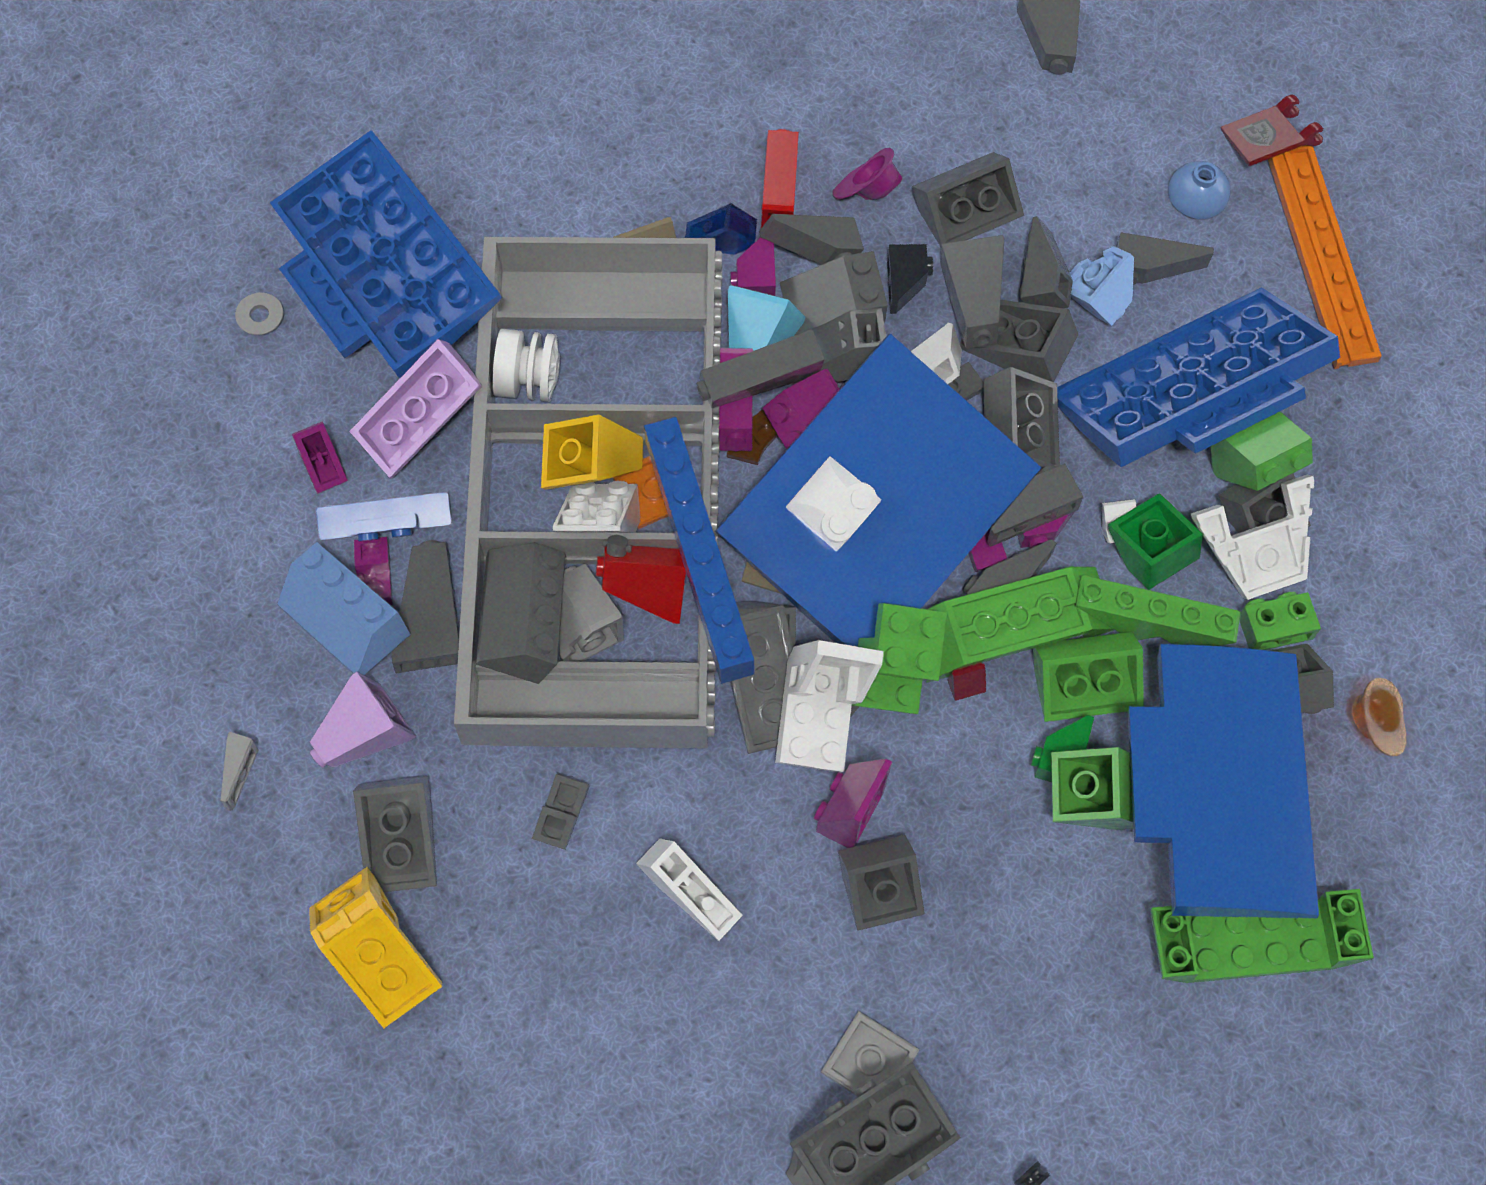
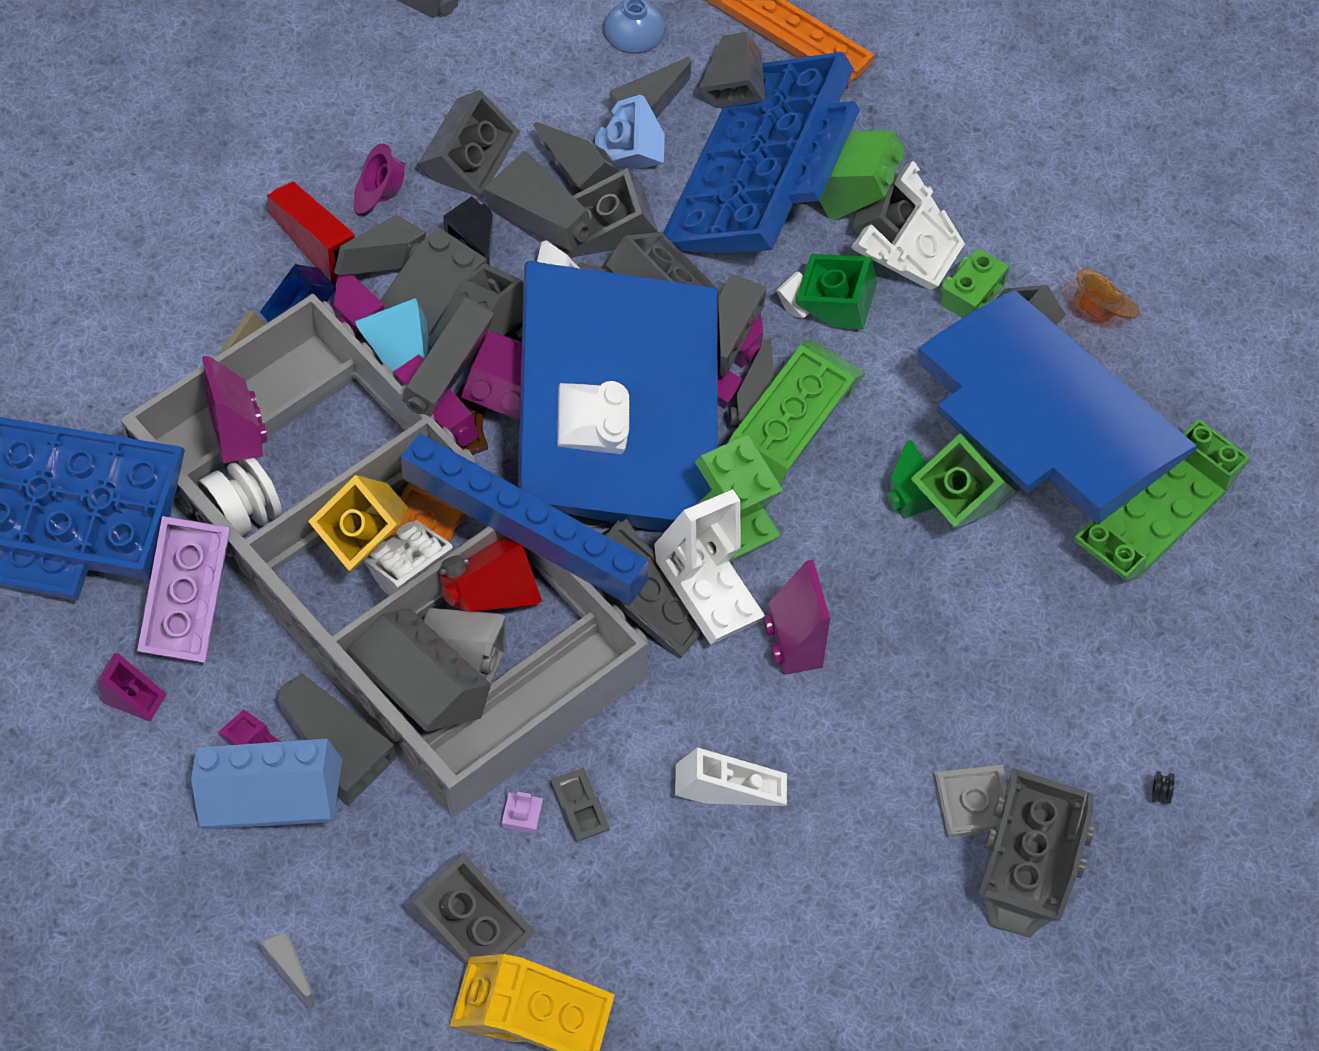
camera: 40 degrees left, 10 degrees down
(359, 724) = (363, 858): lavender slope -> none
(383, 516) = (222, 699): bracket -> none
(513, 782) = (522, 812): none -> lavender tile
(568, 291) = (233, 413): none -> magenta slope
(882, 882) = (867, 668): dark grey slope -> none
(968, 681) = (795, 485): dark red slope -> none
(1089, 676) = (878, 417): bright green slope -> none
(1157, 614) = (882, 341): bright green slope -> none
(1243, 288) = (734, 73): none -> dark grey slope

